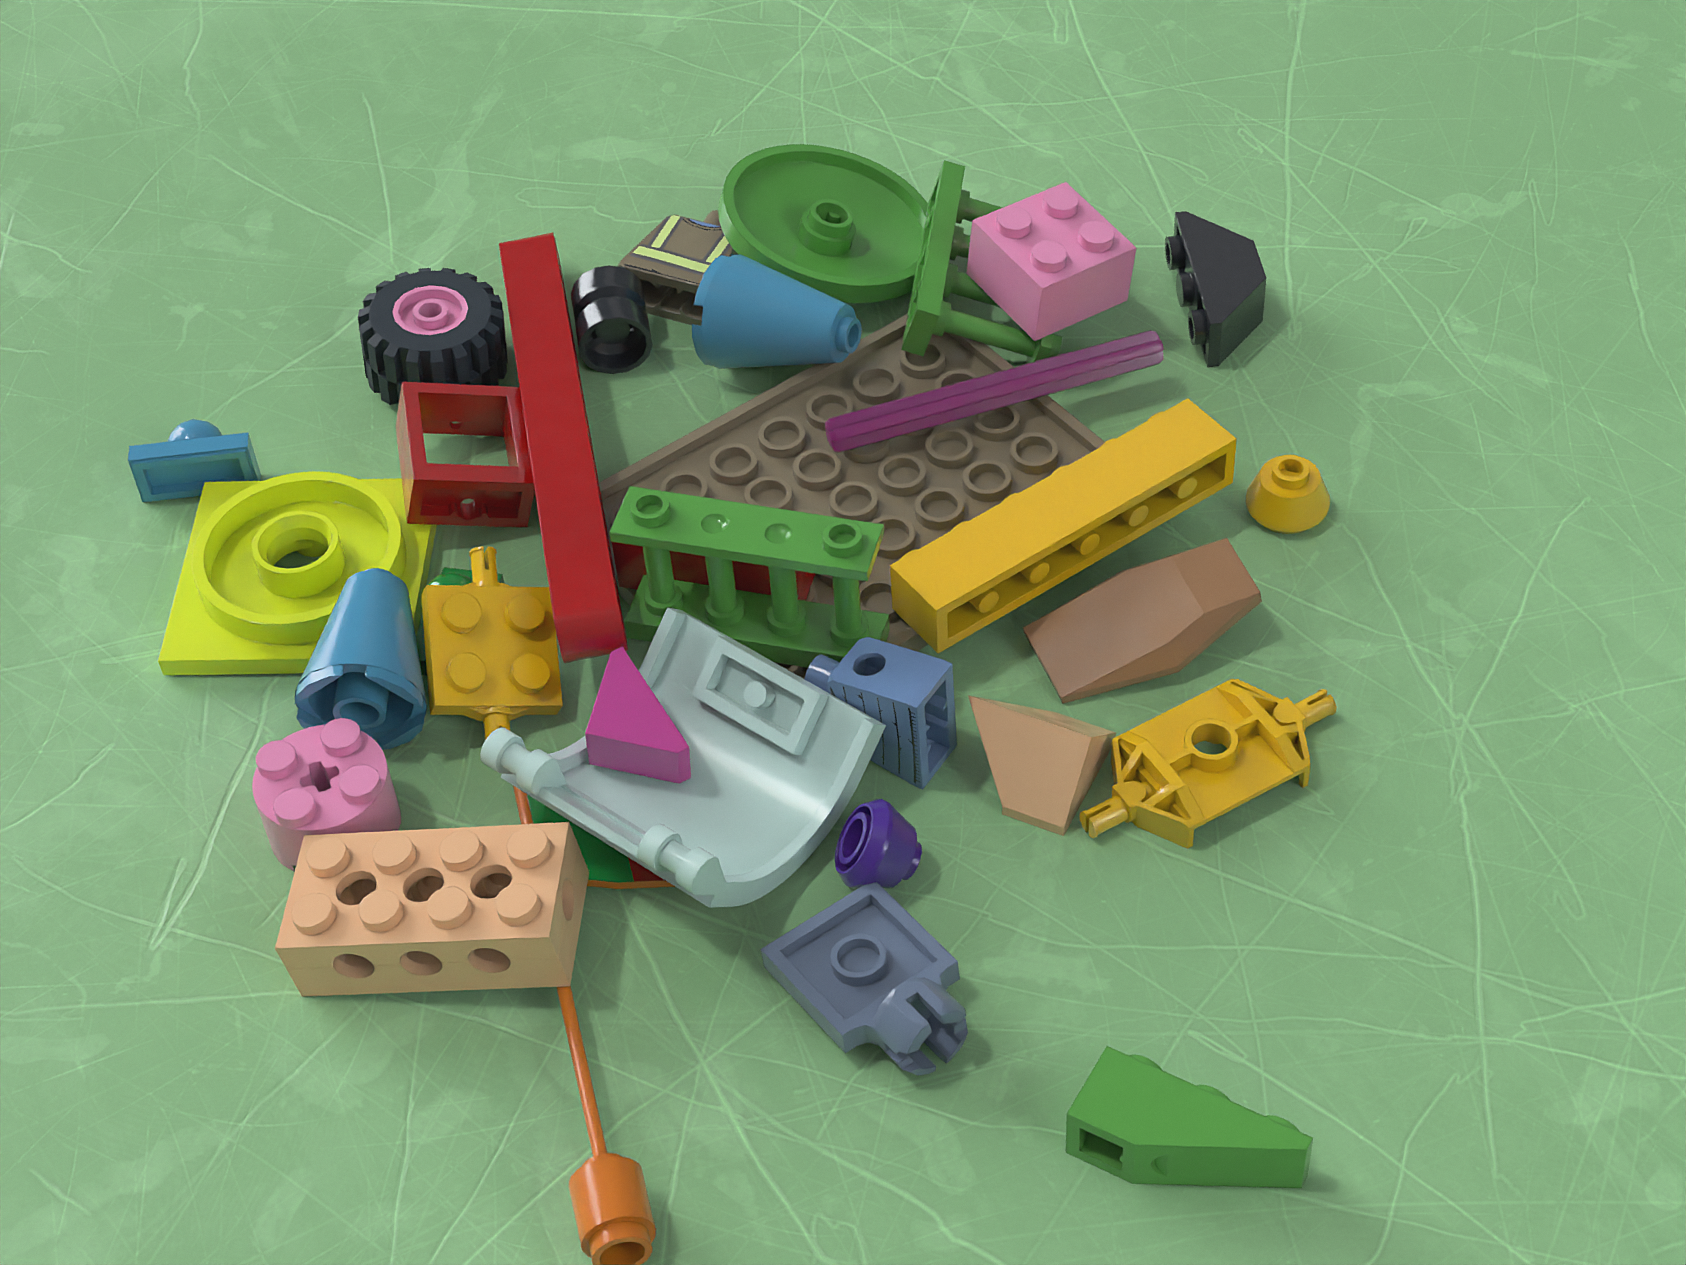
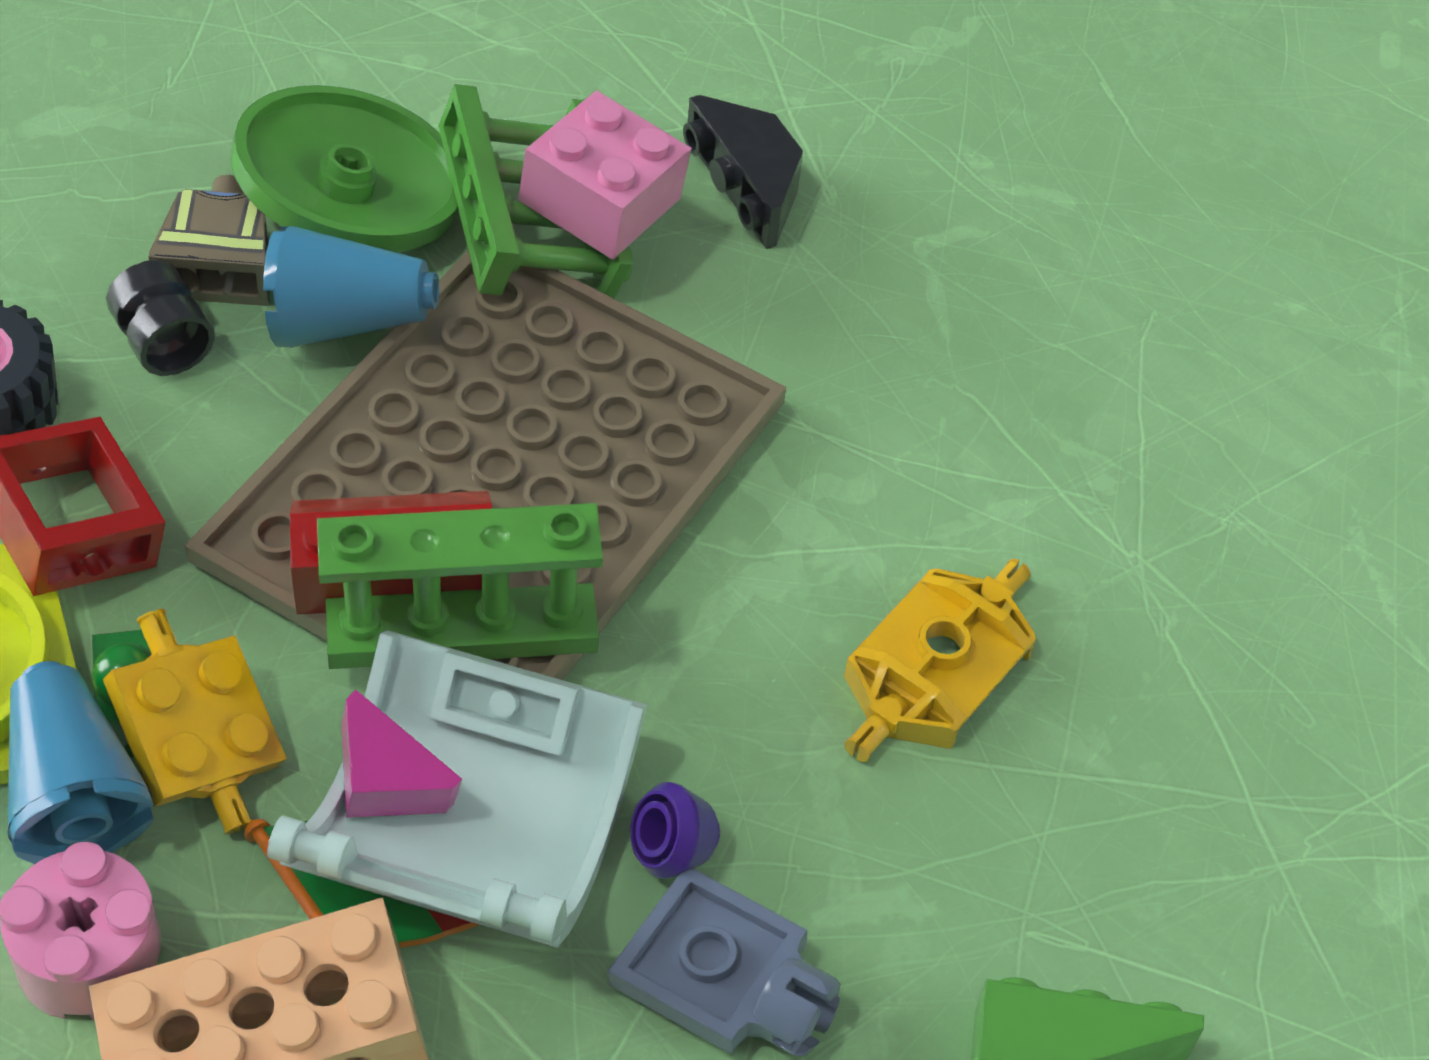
camera: 30 degrees left, 5 degrees up
(561, 453) = (196, 502): red beam -> none
(904, 692) = (639, 663): medium blue torso -> none
(993, 391) = (588, 322): magenta axle -> none
(1040, 760) = (789, 697): light nougat slope -> none
(1061, 524) = (721, 449): yellow brick -> none
(1143, 621) = (824, 529): medium nougat piece -> none
(1288, 495) = (900, 368): yellow cone -> none

